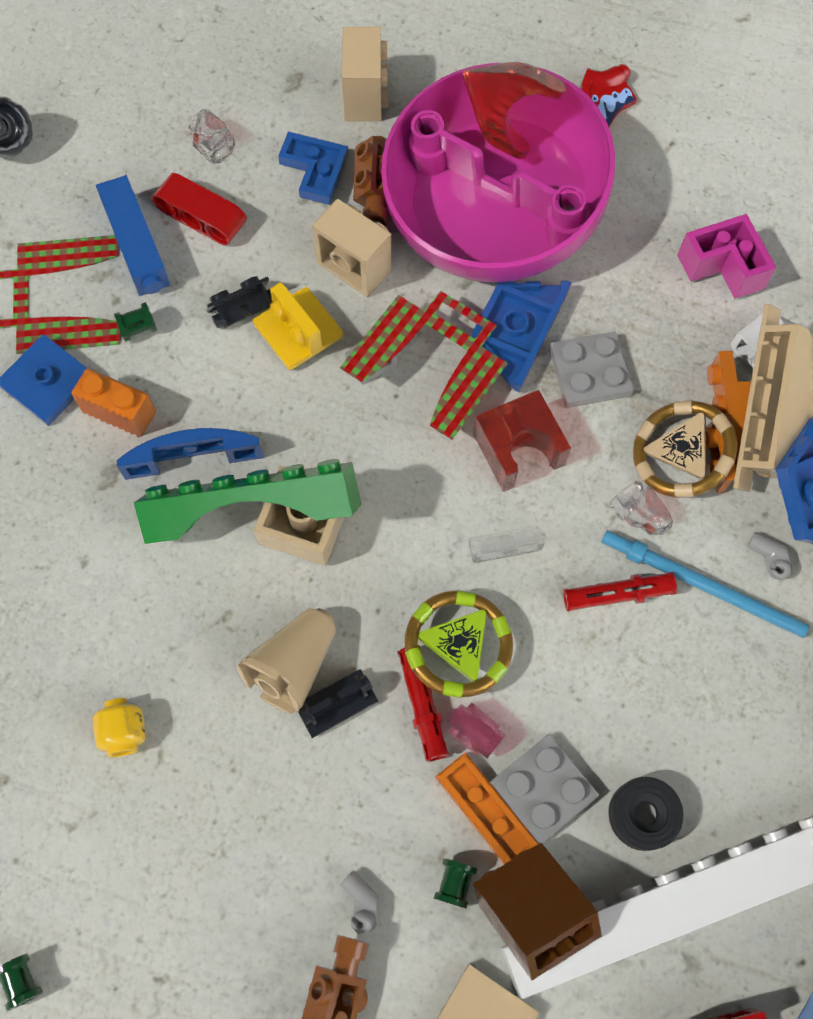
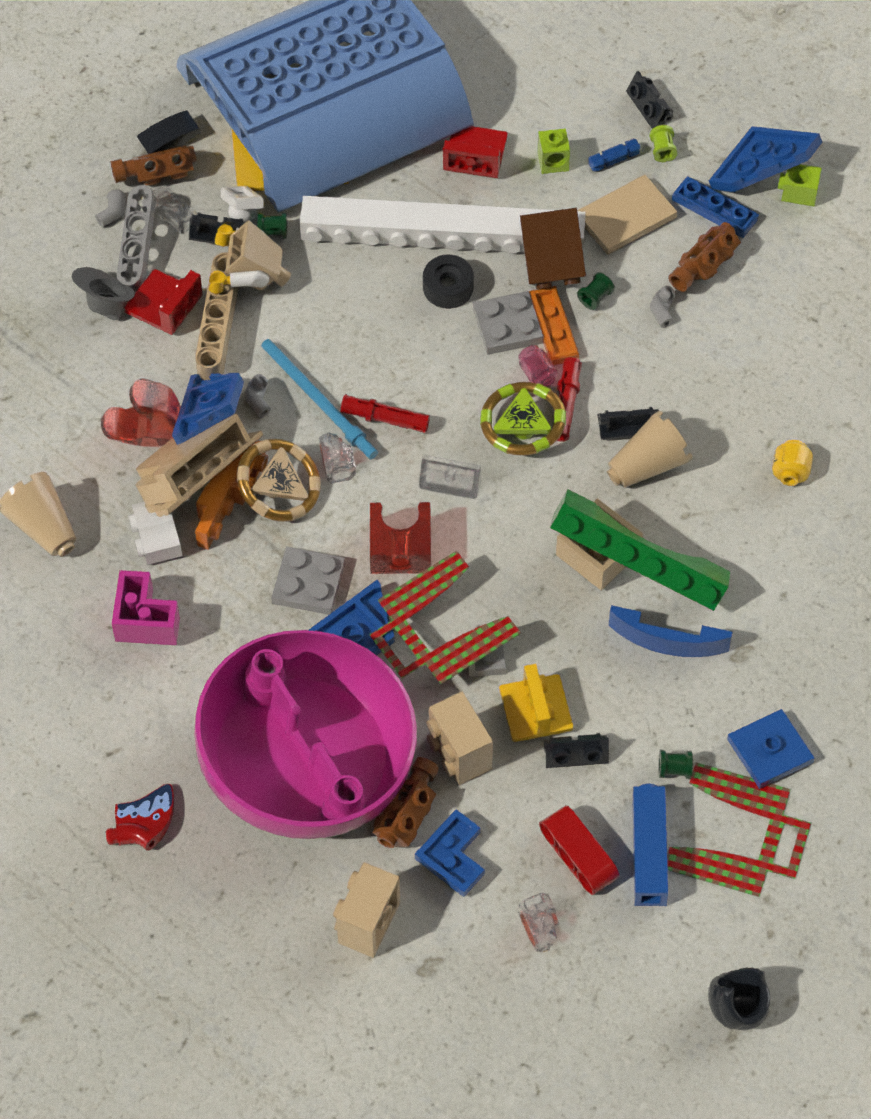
camera: 155 degrees left, 10 degrees down
(114, 402) = (717, 695): orange brick -> none
(496, 89) = (261, 771): clear red animal -> none

